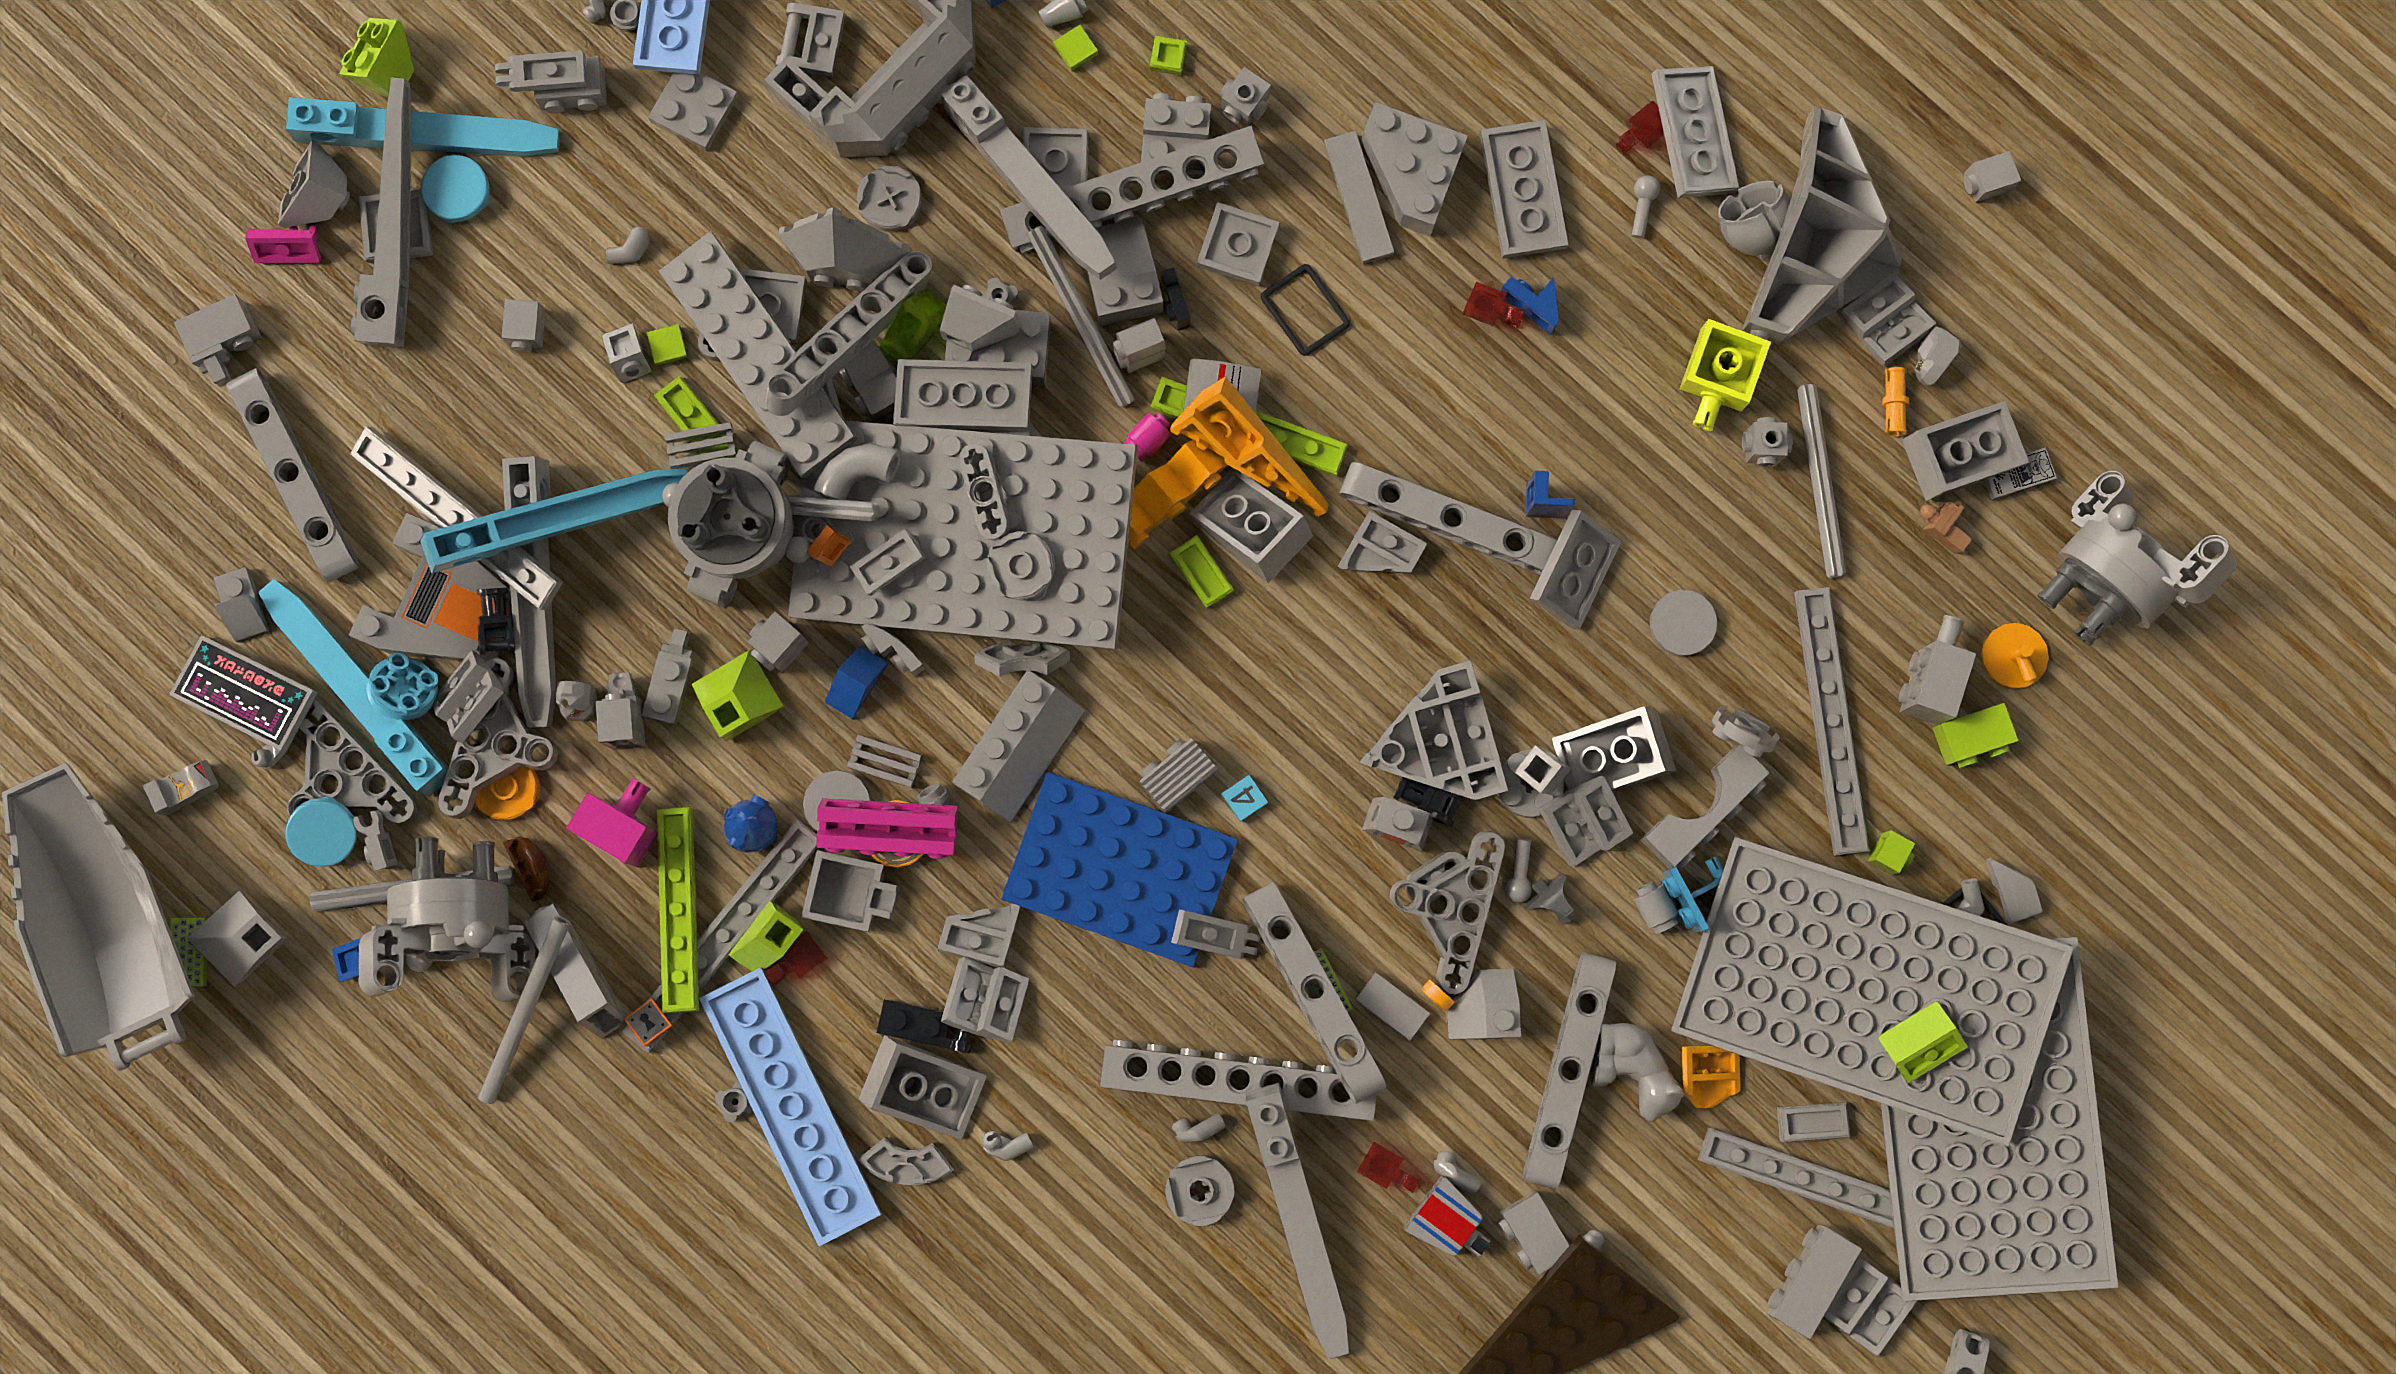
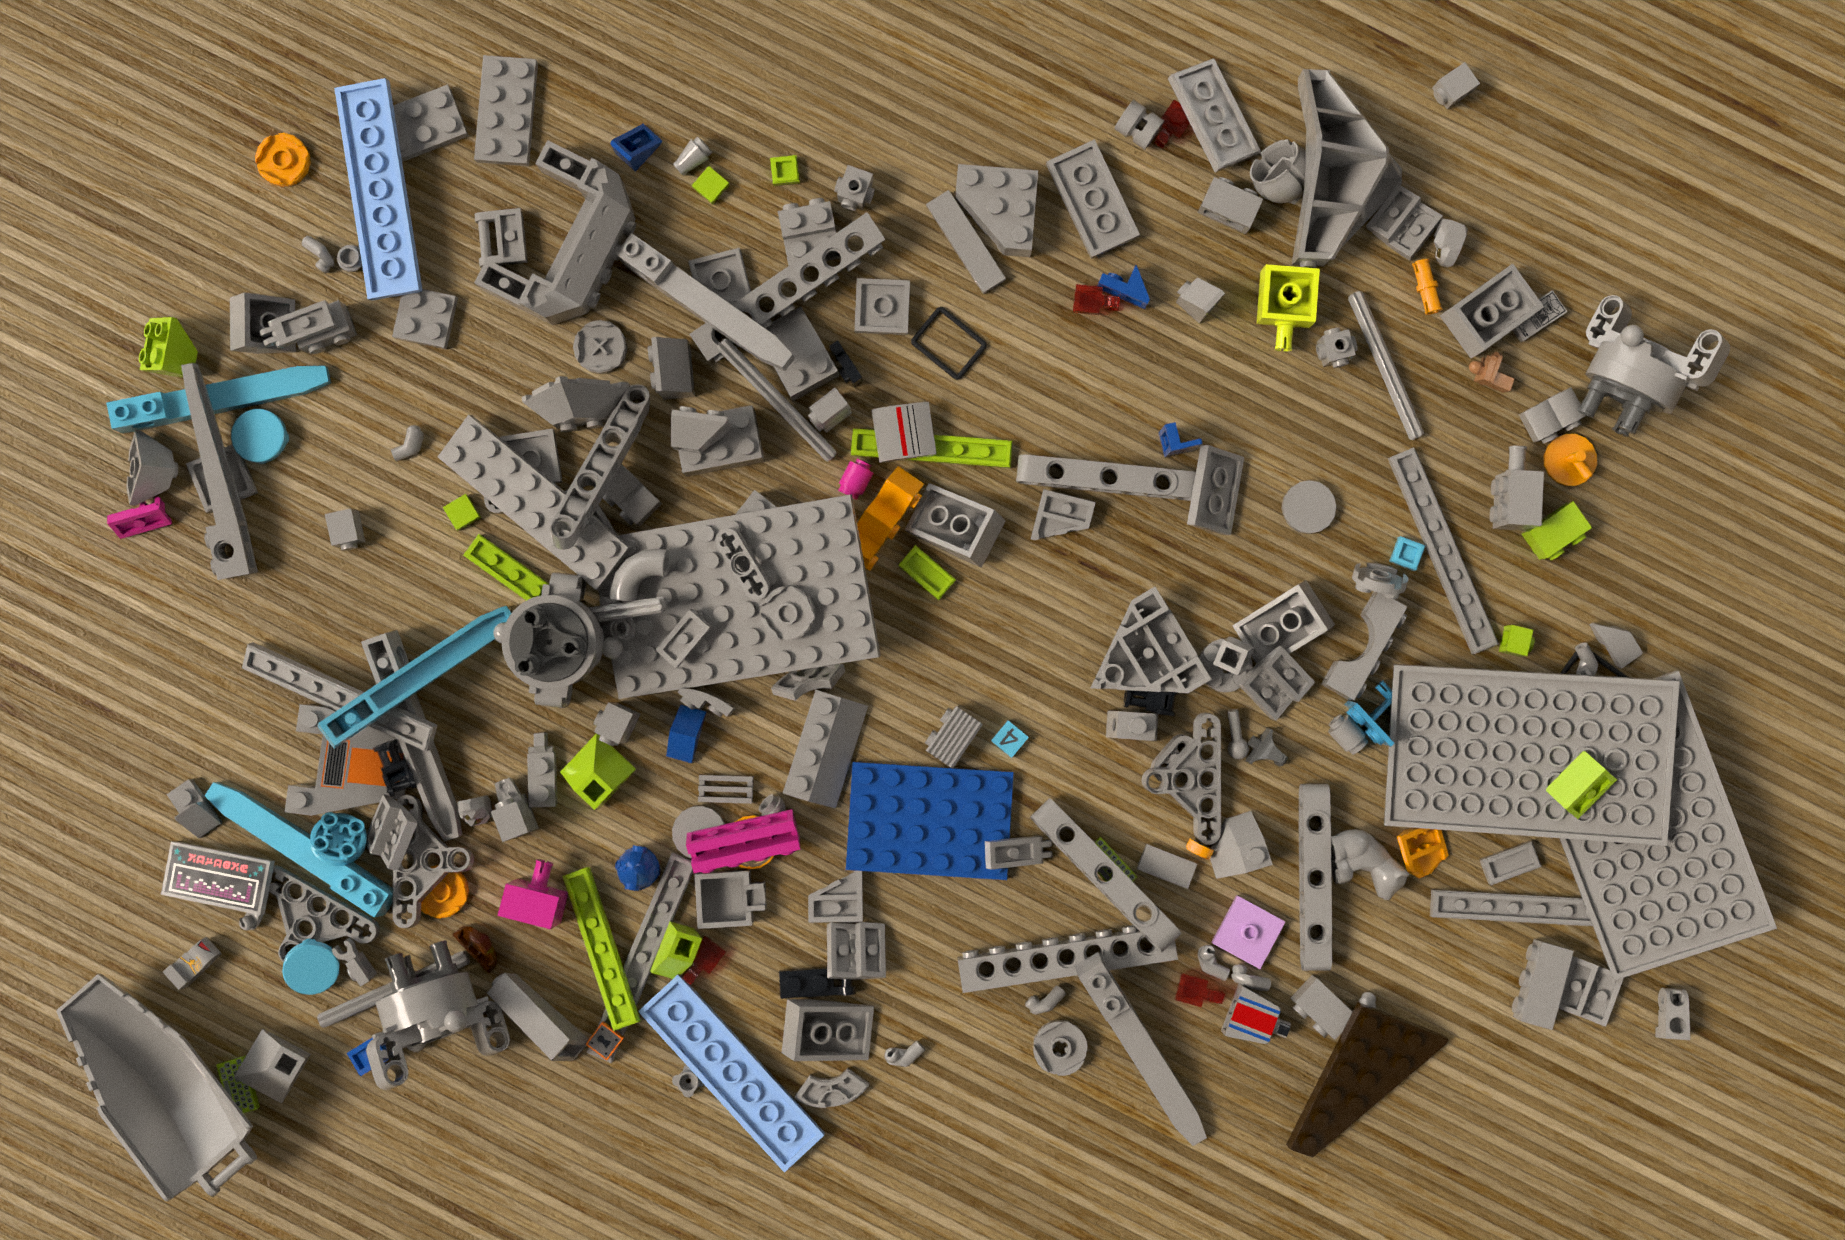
camera: 10 degrees left, 5 degrees up
(215, 333) = (107, 603): light grey hinge -> none
(303, 495) = (188, 682): light grey beam -> none
(490, 43) = (251, 314): none -> light grey slope
(524, 1010) = (507, 1059): light grey piece -> none
(626, 353) = (431, 528): light grey bracket -> none
(672, 450) = (492, 594): light grey tile -> none
(828, 546) = (634, 638): orange tile -> none
(913, 326) = (649, 444): clear neon green slope -> none
(963, 394) = (704, 490): light grey plate -> none
(968, 244) = (672, 368): none -> light grey slope
(996, 287) = (703, 394): light grey plate -> none
(1230, 428) = (918, 456): light orange wedge -> none
(1411, 1140) = (1209, 964): none -> light grey arm
(1469, 1115) = (1248, 932): none -> lavender plate
(1597, 107) = (1132, 118): none -> light grey wheel
(1618, 339) = (1198, 298): none -> light grey slope
(1646, 190) = (1189, 173): light grey bar -> none
(1685, 240) = (1230, 204): none -> light grey brick
(1787, 712) = (1407, 553): none -> medium azure tile
(2006, 595) = (1552, 415): none -> light grey brick

